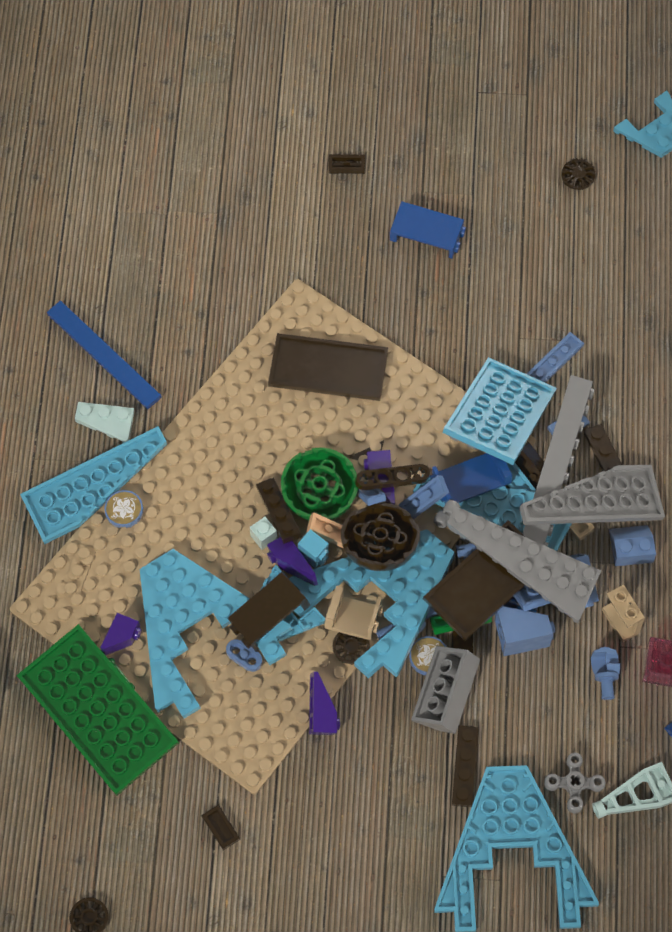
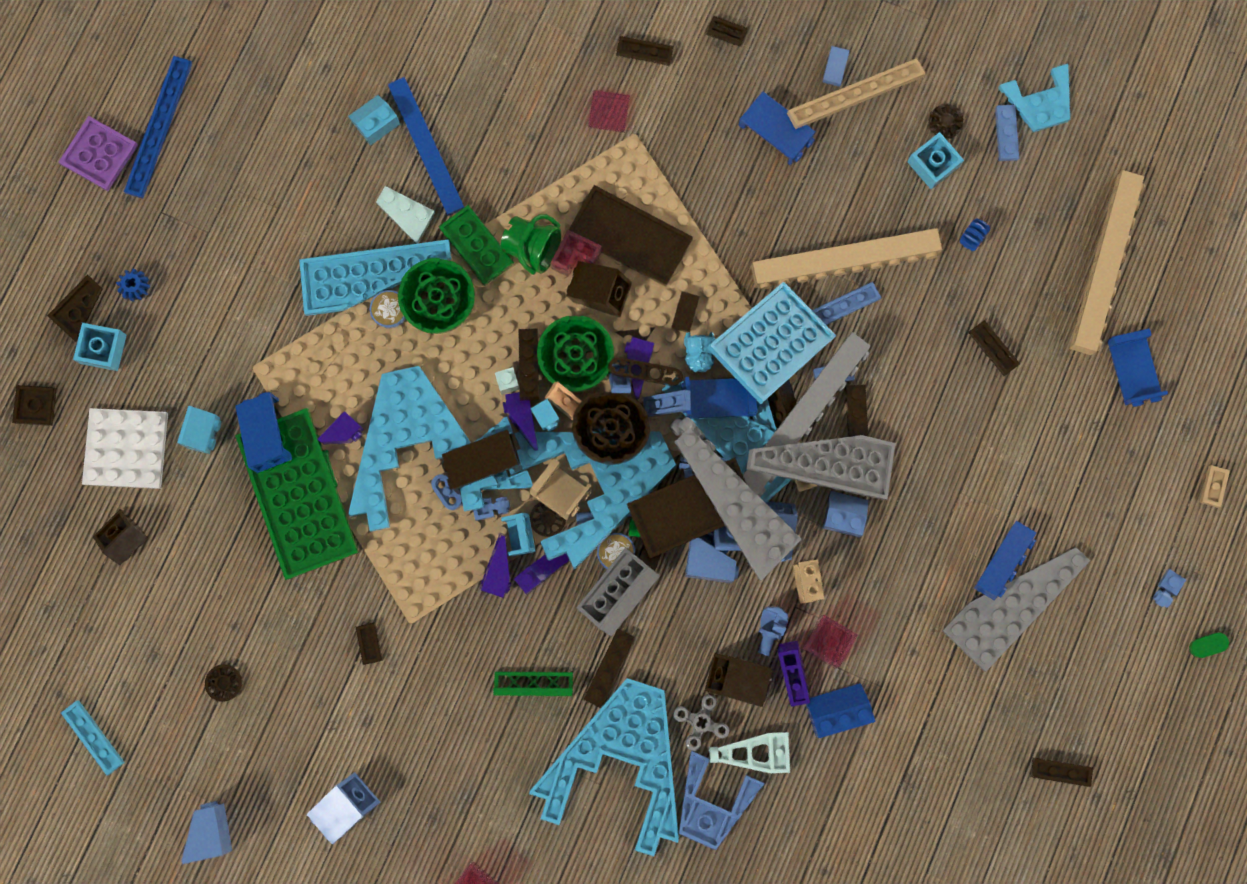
camera: 15 degrees right, 15 degrees up
(43, 661) = (261, 433): none -> blue panel
(46, 346) = (374, 119): none -> medium azure slope
(148, 467) = (424, 278): none -> green brick
(186, 424) = (476, 245): none -> green tile
(240, 399) = (532, 242): none -> green piece
(265, 267) = (609, 111): none -> clear pink tile
(277, 204) = (644, 50): none -> dark brown plate
(284, 393) = (574, 249): none -> clear pink brick
(301, 649) = (501, 505): none -> medium blue plate
(318, 420) = (599, 288): none -> dark brown slope
(329, 668) = (520, 534): none -> medium azure panel
(362, 698) = (539, 572): none -> dark purple slope
(399, 812) = (533, 691): none -> green fence
(407, 416) = (685, 312): none -> dark brown tile
(435, 444) = (698, 356): none -> medium azure hair
(458, 160) = (835, 66): none -> medium blue tile
(487, 175) = (856, 93): none -> tan plate
(537, 319) = (846, 258): none -> tan brick
(583, 208) = (935, 160): none -> medium azure brick
(594, 729) = (738, 679): none -> dark brown slope
(612, 874) = (703, 820): none -> medium blue wing
(637, 165) = (1007, 132): none -> medium blue plate
(644, 705) = (794, 673): none -> dark purple slope
(646, 258) = (974, 234): none -> blue gear

